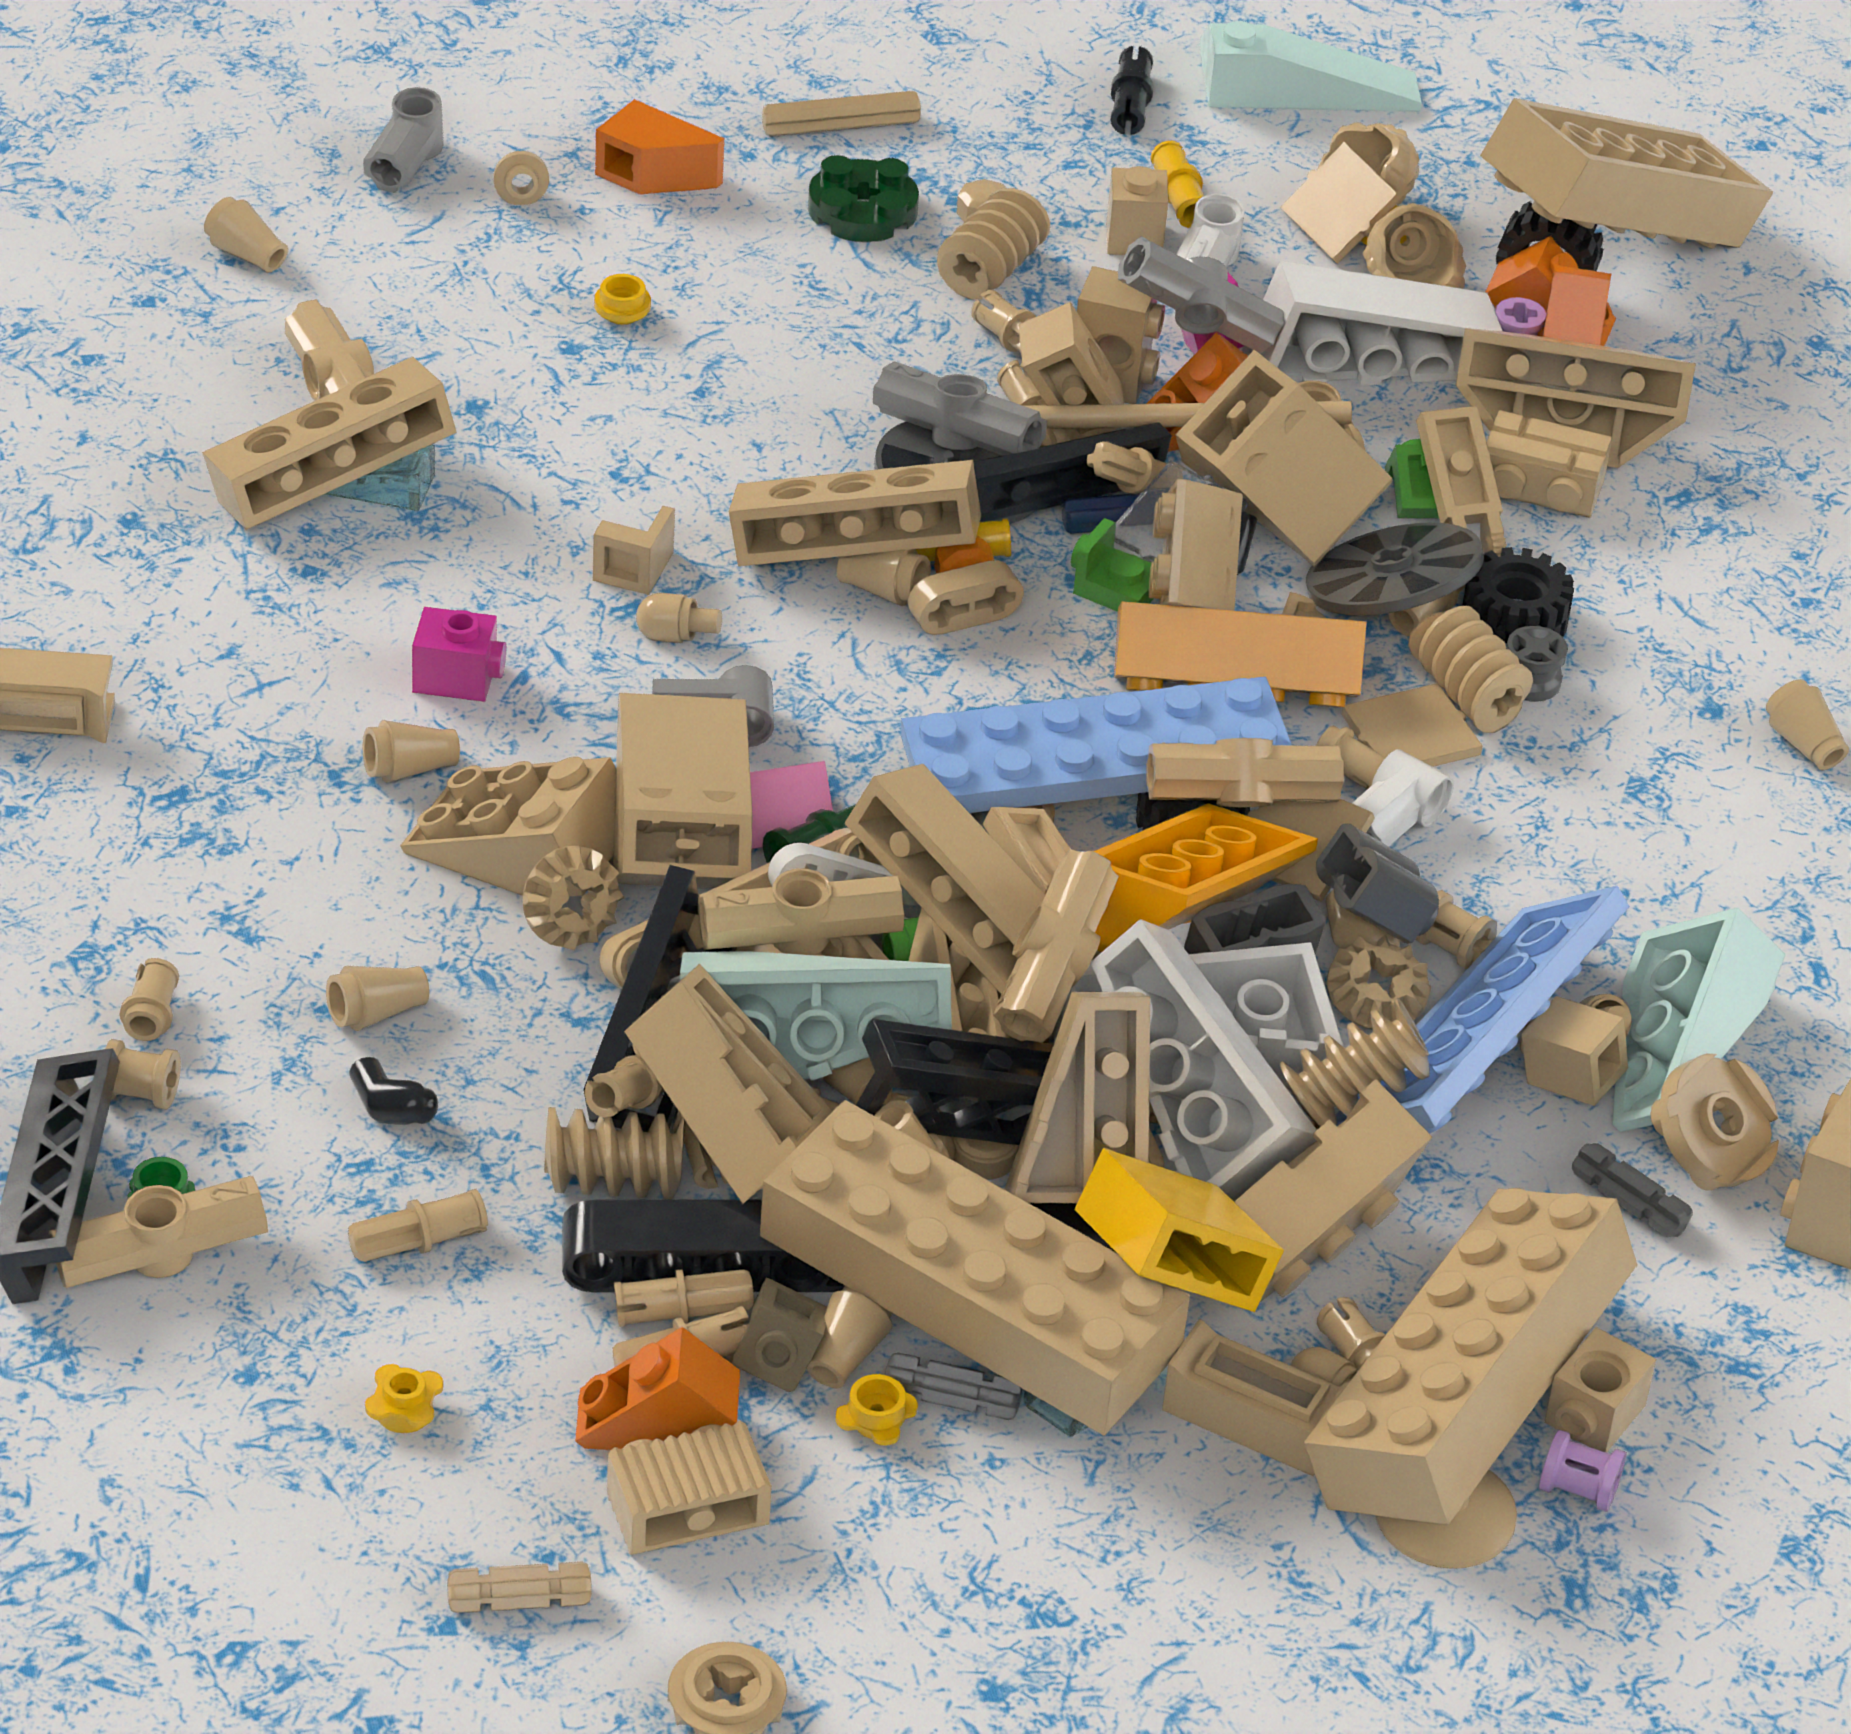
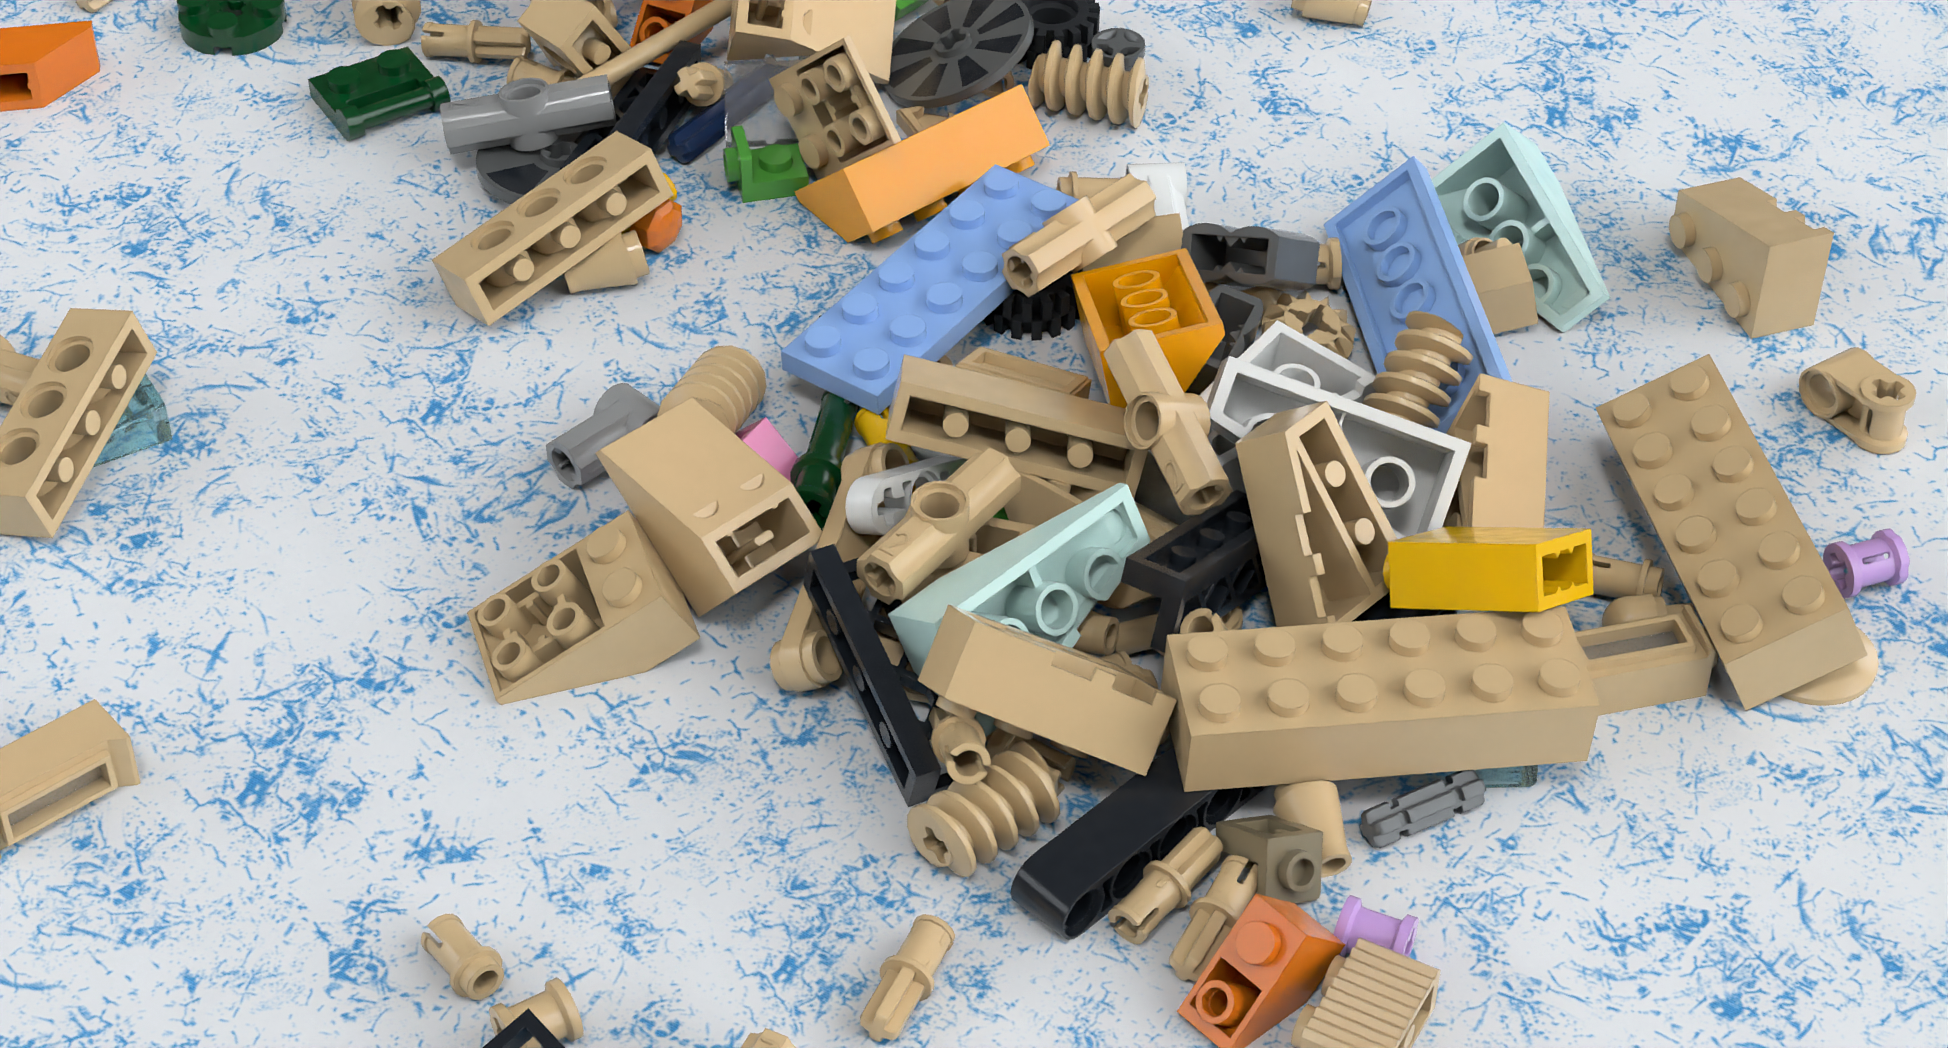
camera: 40 degrees left, 0 degrees up
(371, 994) = (636, 827): tan cone -> none
(392, 1099) = (750, 898): black arm -> none
(405, 750) = (413, 623): tan cone -> none
(456, 654) = (362, 522): dark pink brick -> none
(547, 892) = (703, 659): tan gear -> none
(622, 299) = (141, 186): yellow plate -> none
(631, 555) = (400, 366): tan panel -> none
(675, 618) = (491, 392): tan cylinder -> none
(779, 1439) = (1376, 927): none -> lavender bush
(810, 724) = (723, 382): none -> tan piece
(877, 1408) = (1399, 862): yellow plate -> none
(895, 327) = (377, 91): none -> dark green plate
(965, 597) = (688, 246): tan beam -> none
(1416, 722) = (1089, 149): tan piece -> none
(1600, 1390) = (1816, 495): tan brick -> none
(1632, 1190) = (1629, 360): dark grey axle -> none
(1691, 1133) = (1636, 280): tan plate -> none
(1783, 1351) = (1857, 395): none -> tan piece

